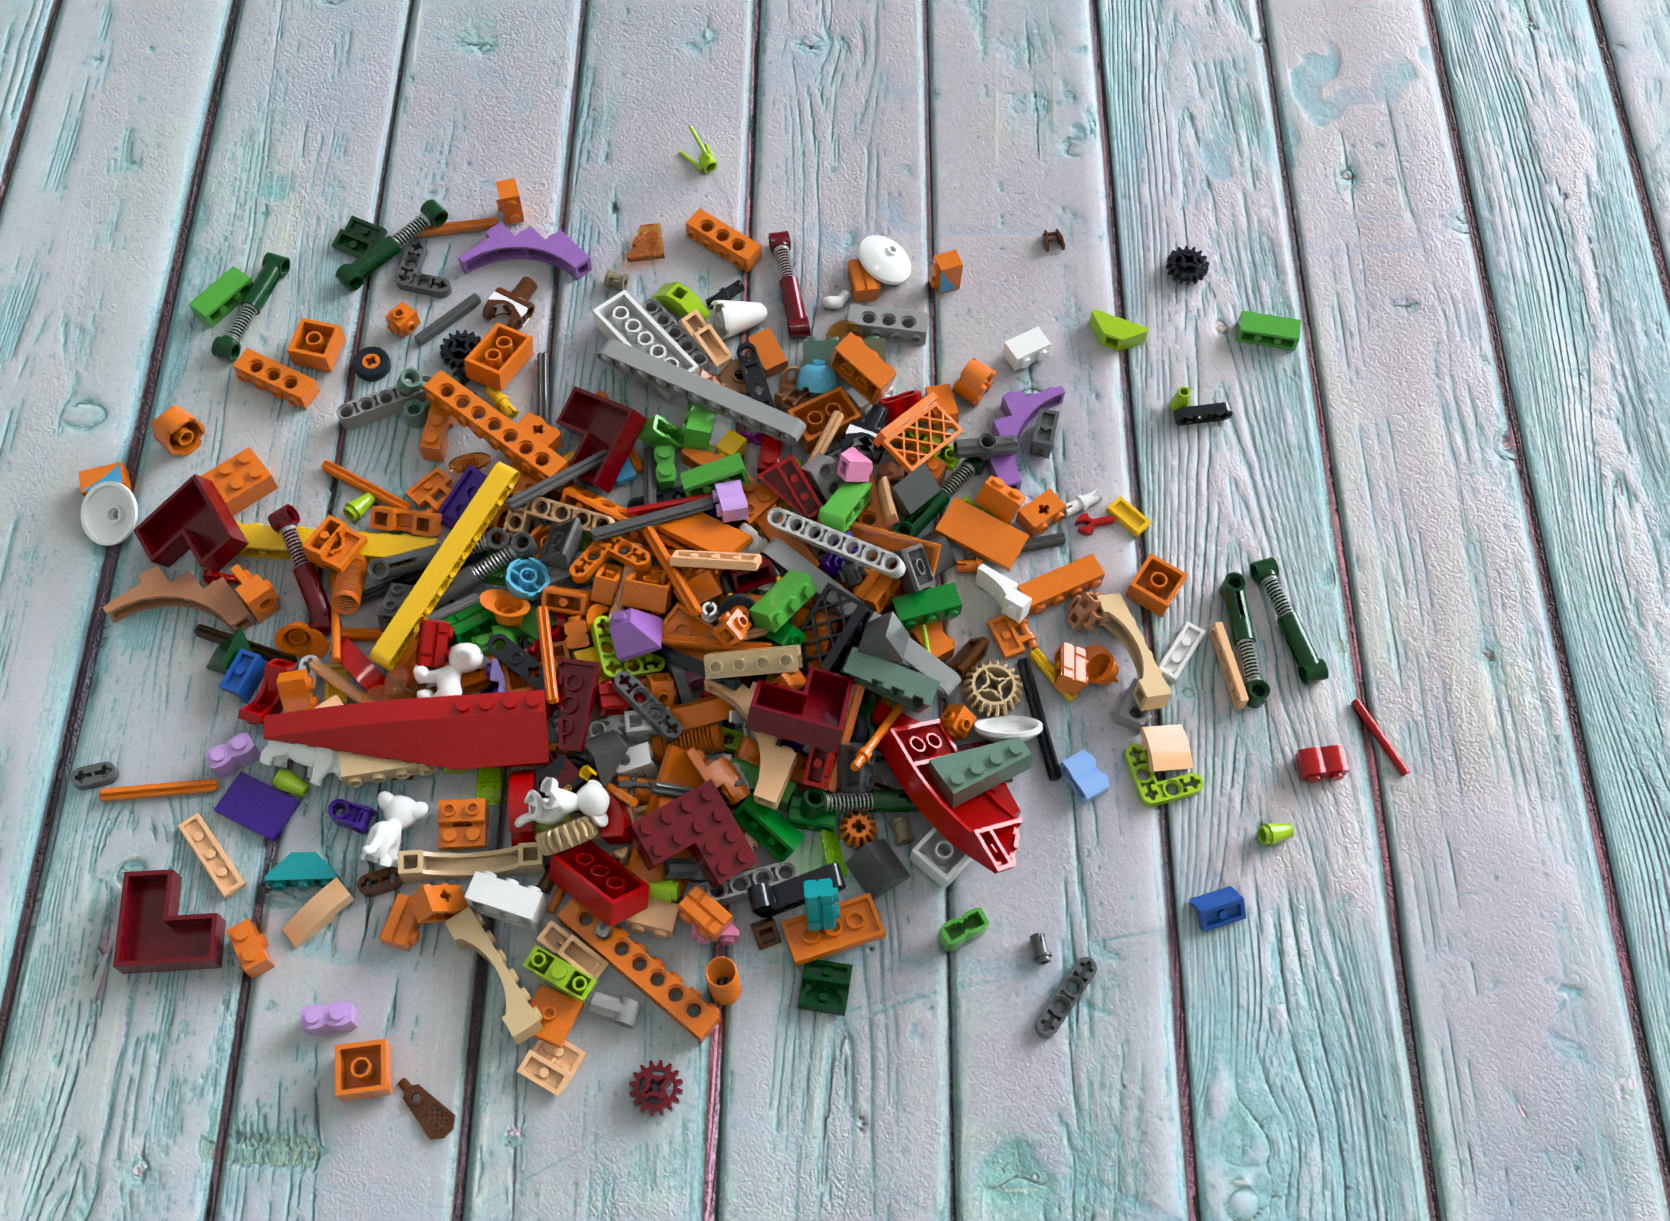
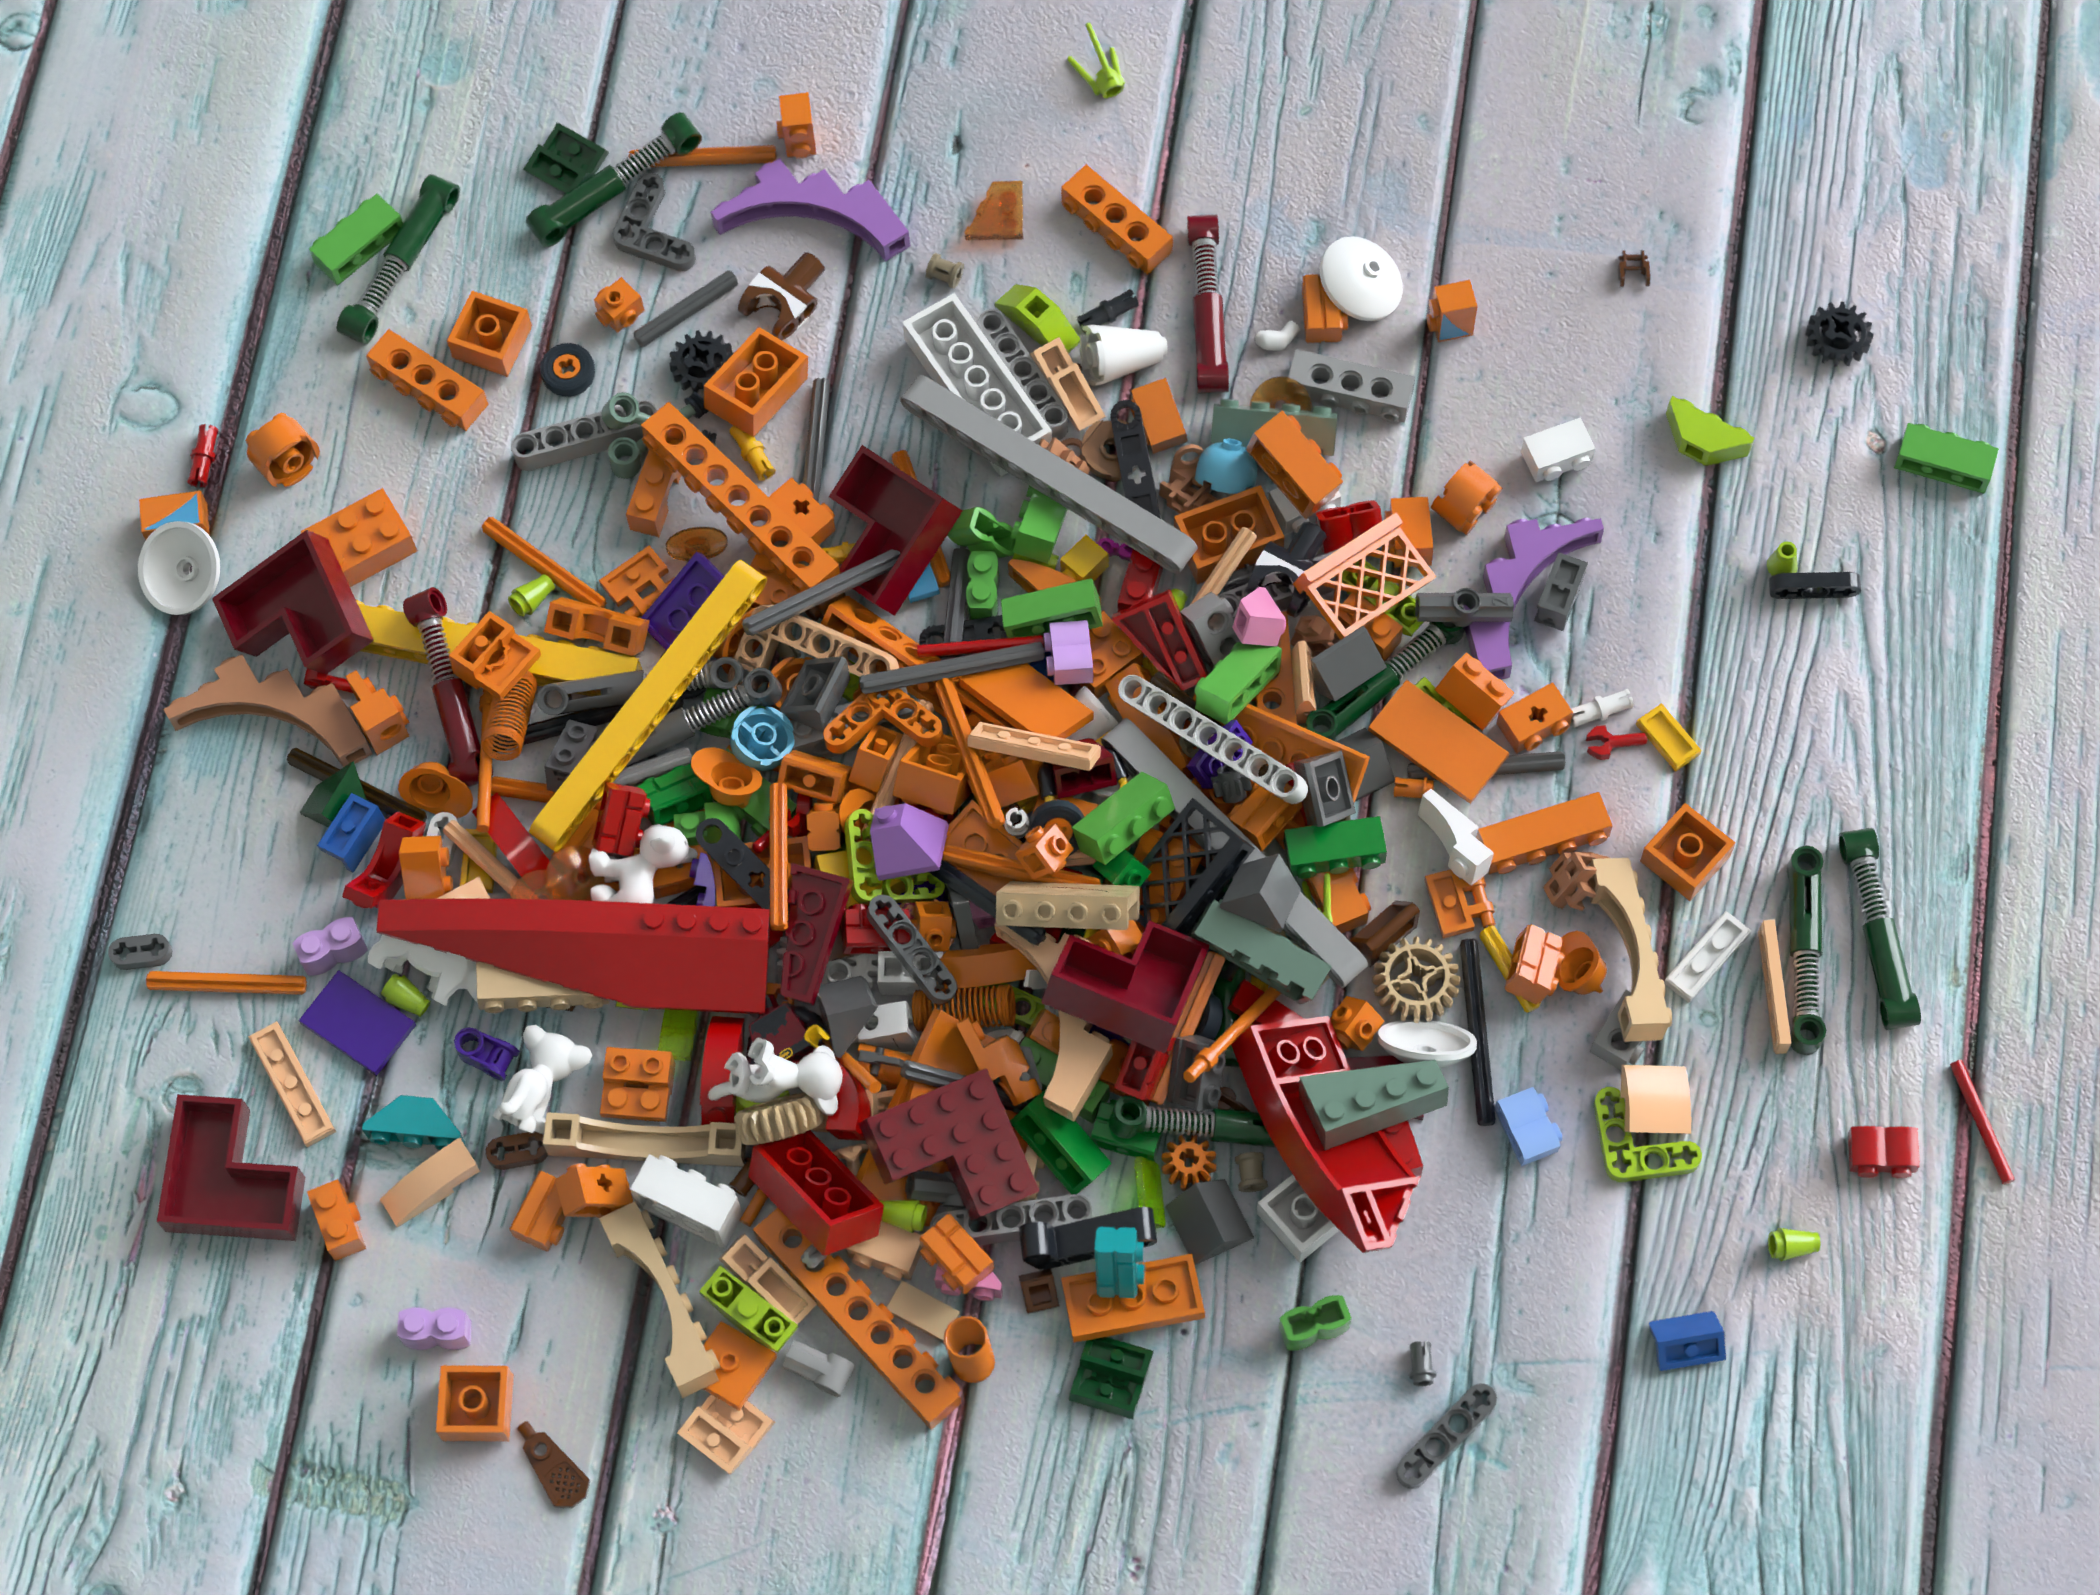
camera: 15 degrees right, 5 degrees up
(123, 441) = (202, 456): none -> red pin
(647, 1093) = (873, 1474): dark red gear -> none
(685, 958) = (921, 1310): none -> tan tile

